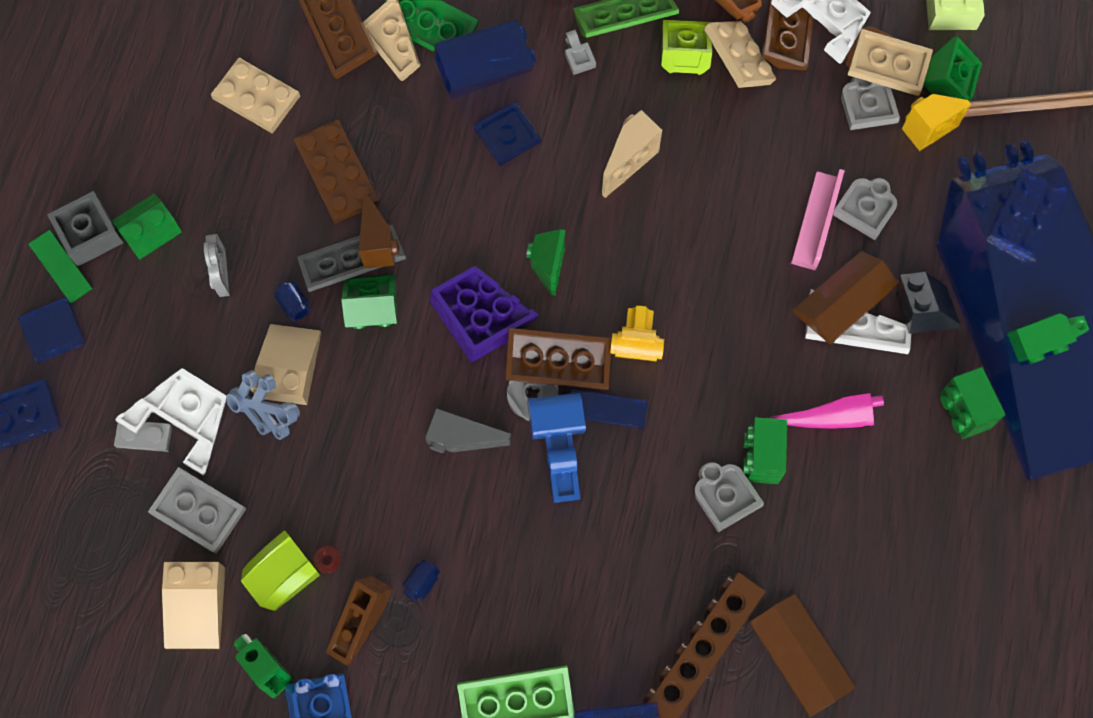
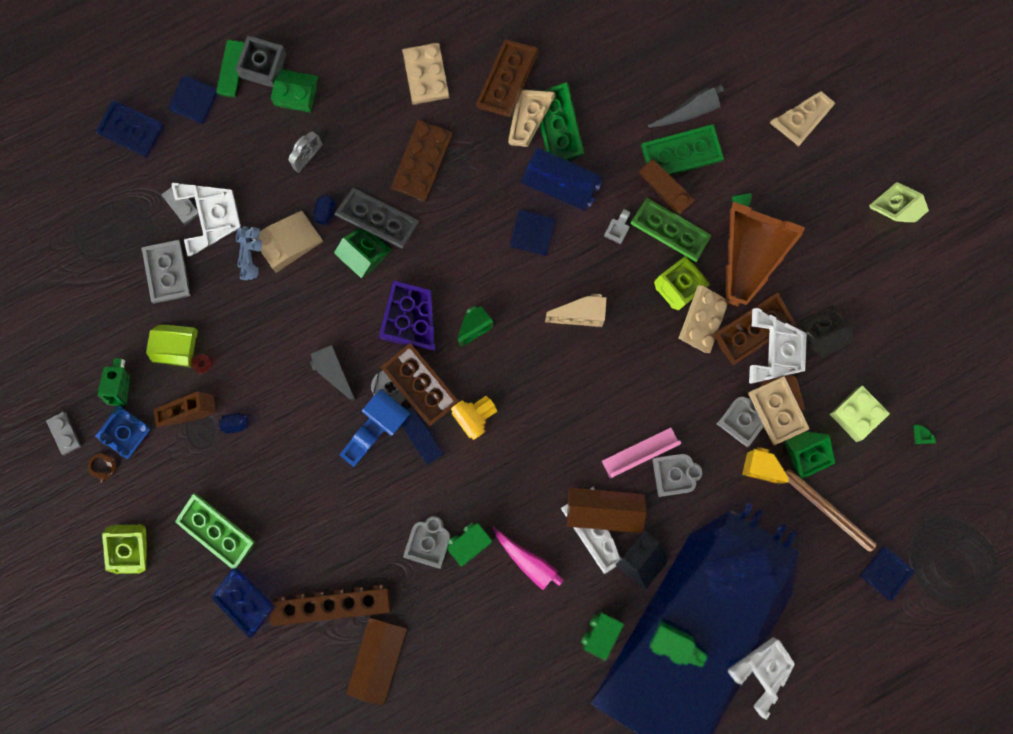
camera: 45 degrees right, 10 degrees up
(192, 604) = (116, 317): tan slope -> none
(376, 240) = (395, 223): reddish brown slope -> none

